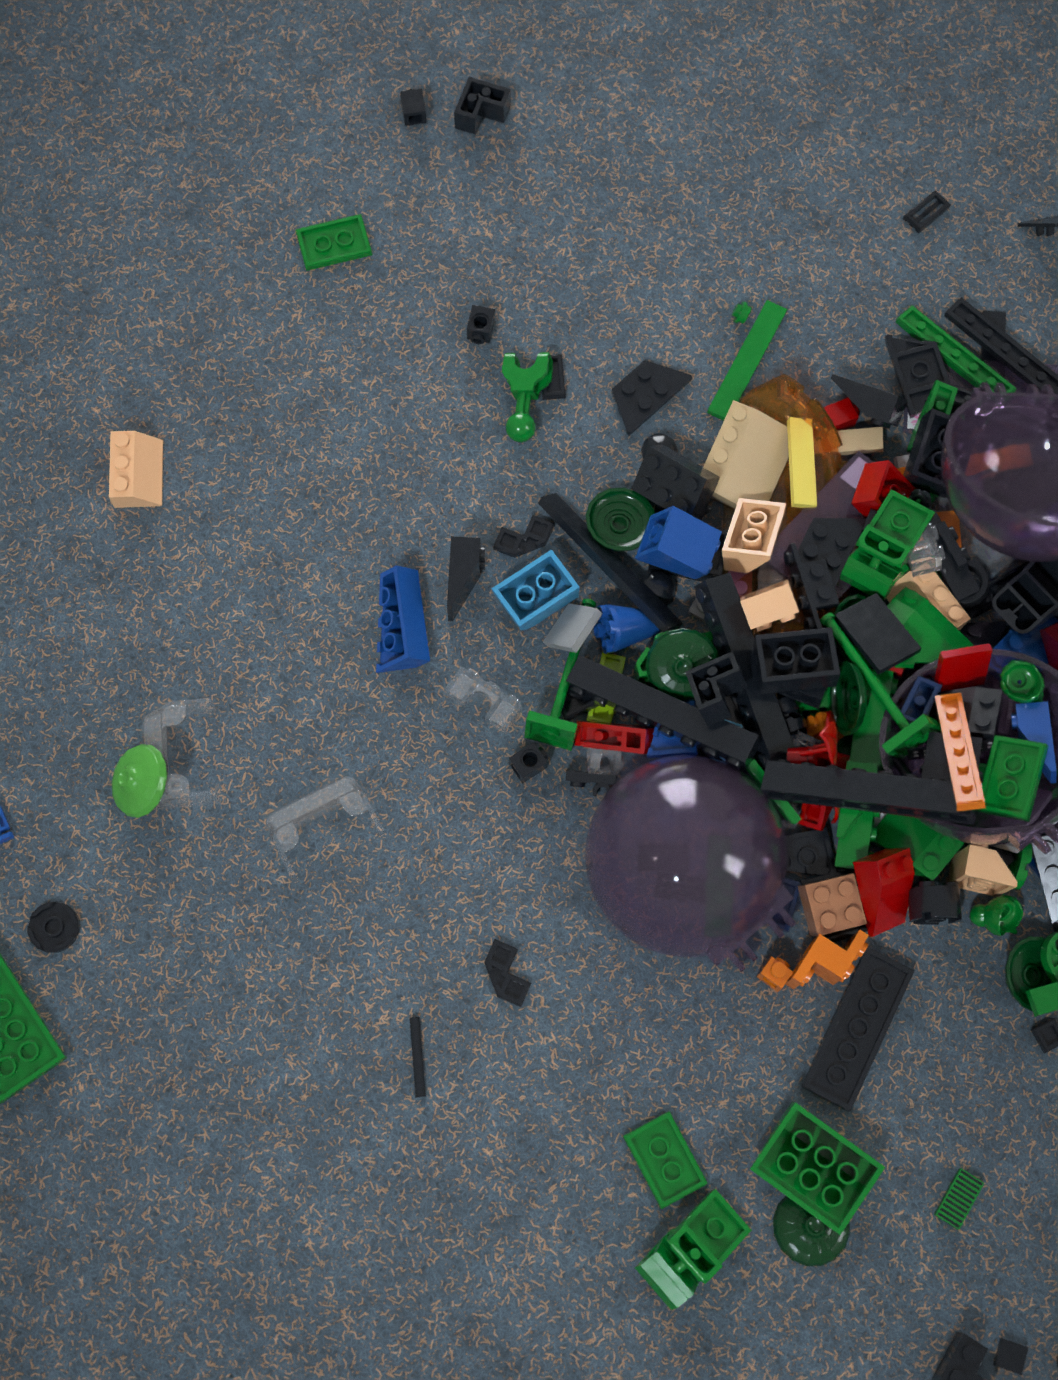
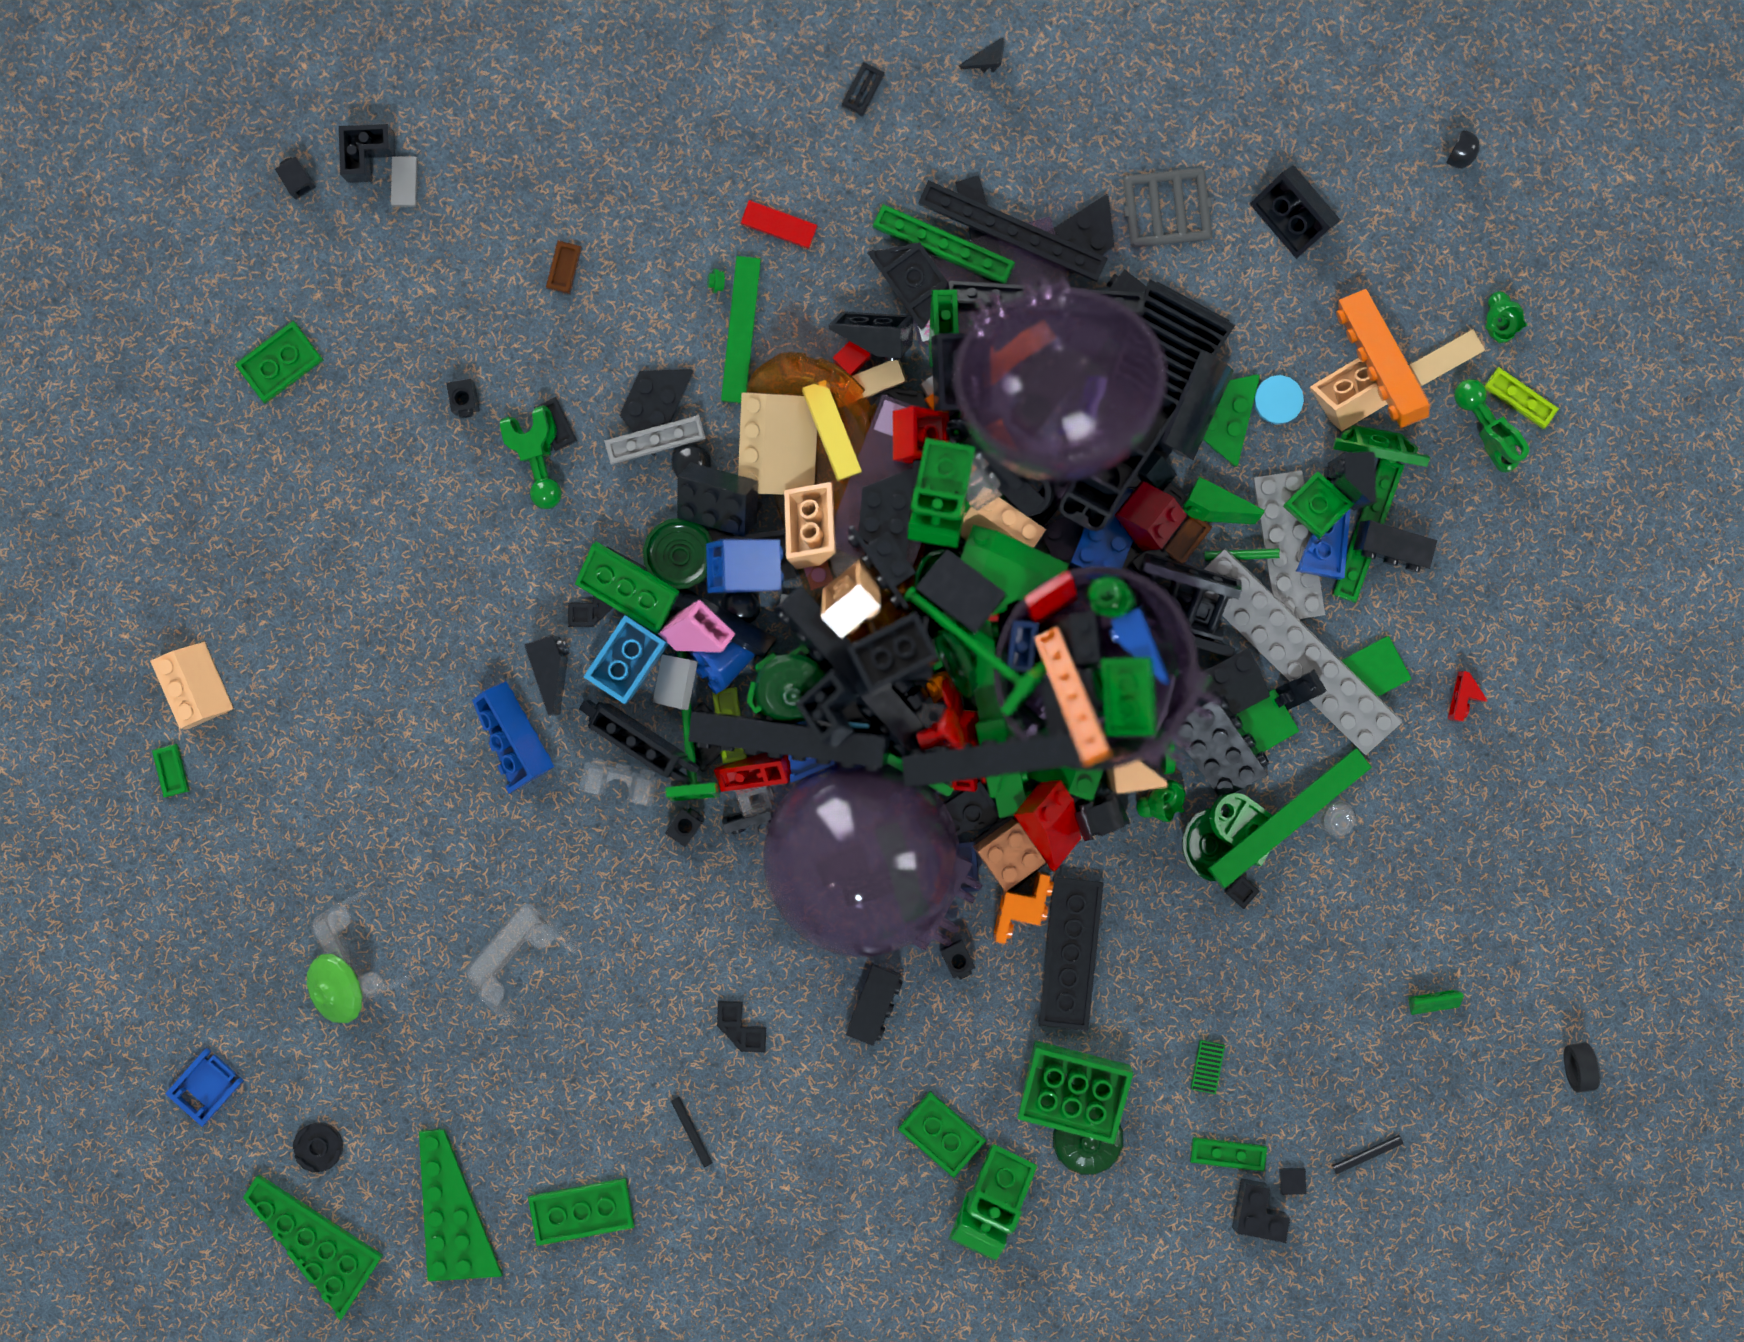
camera: 20 degrees left, 15 degrees up
(81, 536) = (170, 770): none -> green tile
(146, 1059) = (452, 1226): none -> green wing
(277, 1093) = (581, 1211): none -> green tile
(502, 143) = (404, 182): none -> light grey tile
(518, 665) = (638, 741): none -> black hinge
(562, 528) = (626, 587): none -> green tile
(611, 256) = (563, 267): none -> reddish brown tile
(612, 585) = (696, 630): none -> bright pink slope
(636, 419) = (655, 439): none -> light grey tile
(646, 1001) = (874, 1004): none -> black brick
(747, 978) = (949, 952): none -> black brick
(775, 973) = (980, 933): orange brick -> none
(813, 289) = (779, 224): none -> red tile
(952, 1299) = (1228, 1154): none -> green tile

